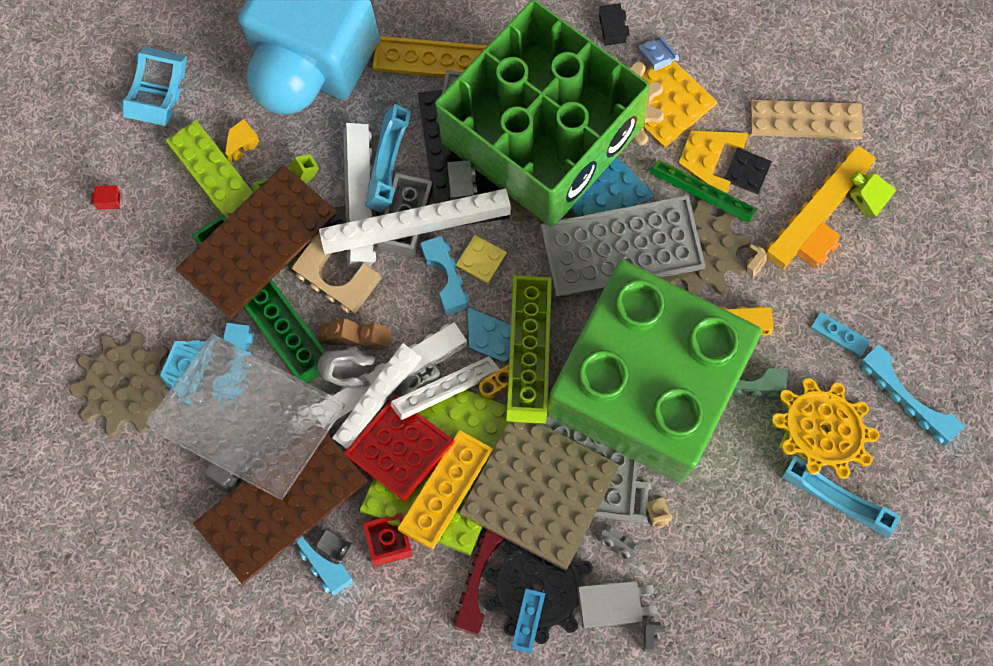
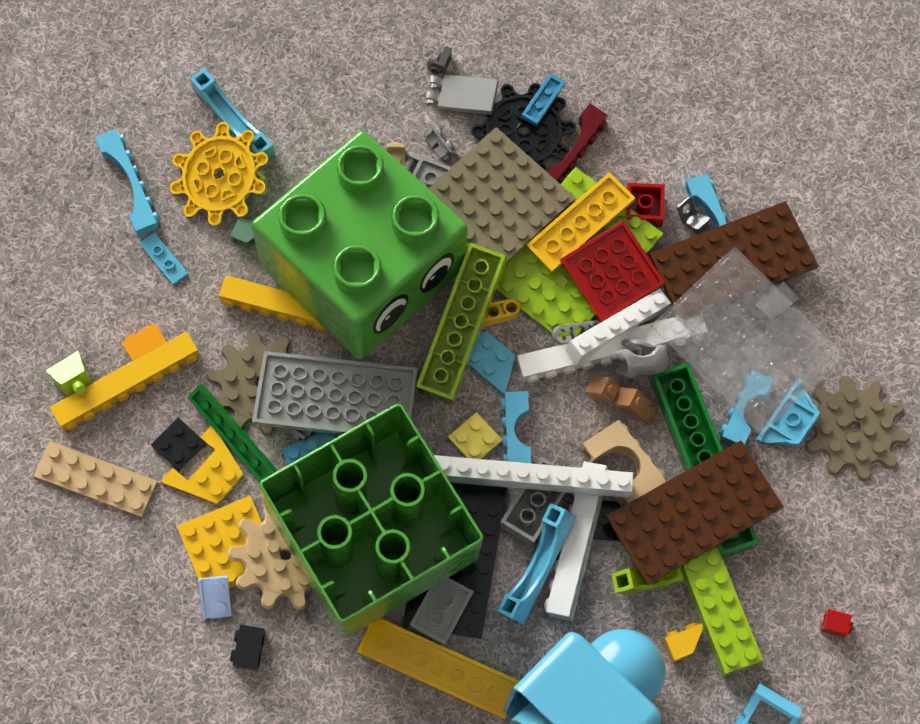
camera: 165 degrees left, 0 degrees up
(444, 388) = (551, 315): white plate -> none
(461, 179) = (474, 497): flat silver brick -> none
(755, 263) = (213, 346): tan bracket -> none

